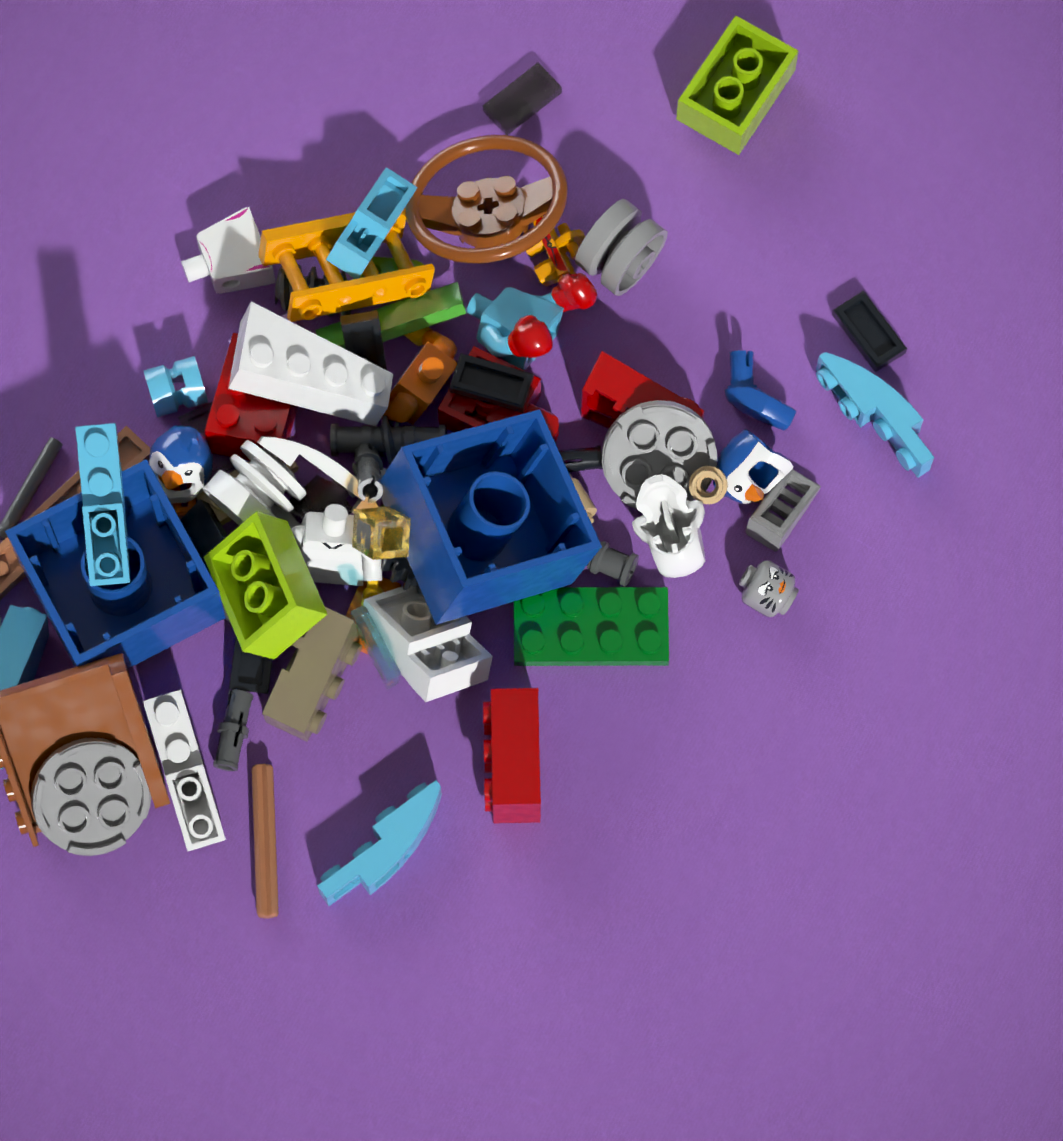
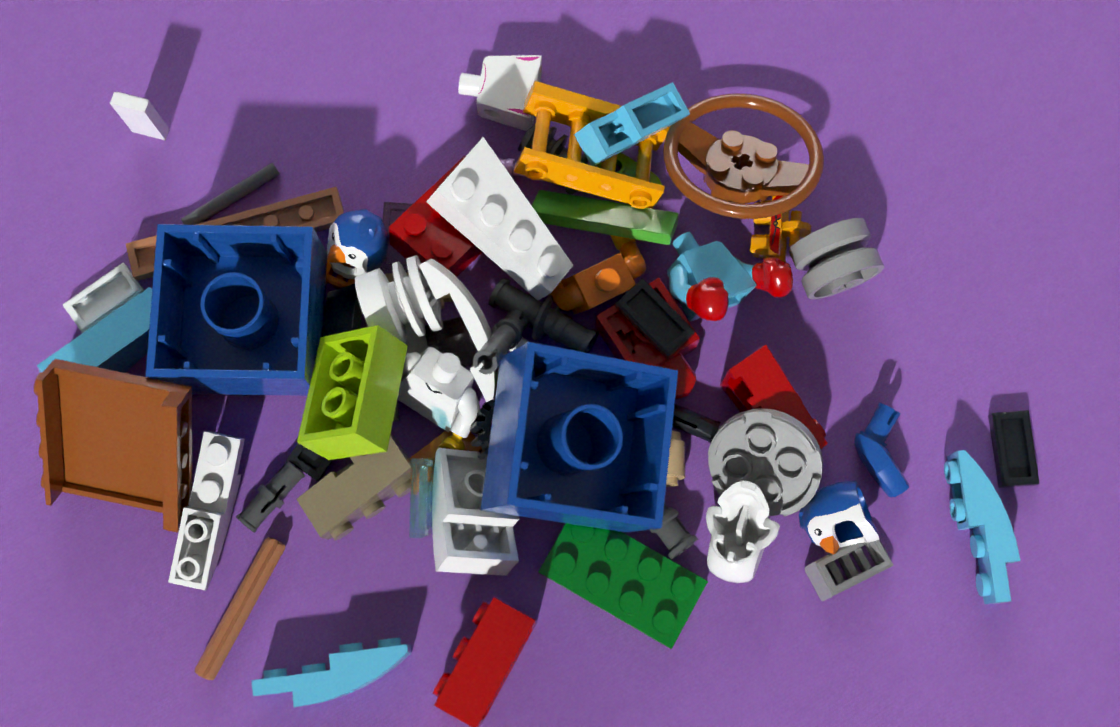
camera: 30 degrees right, 5 degrees up
(90, 796) = (111, 489): light grey tile -> none
(103, 504) = (248, 249): medium azure slope -> none
(162, 390) = (382, 175): medium azure wheel -> none
(364, 337) = (569, 222): black tile -> none
(381, 533) = (476, 404): clear yellow brick -> none
(522, 99) = (825, 86): clear smoke tile -> none
(697, 490) = (785, 521): tan plate -> none
(737, 85) = (1018, 170): lime brick -> none
(768, 588) = (795, 634): light grey head -> none

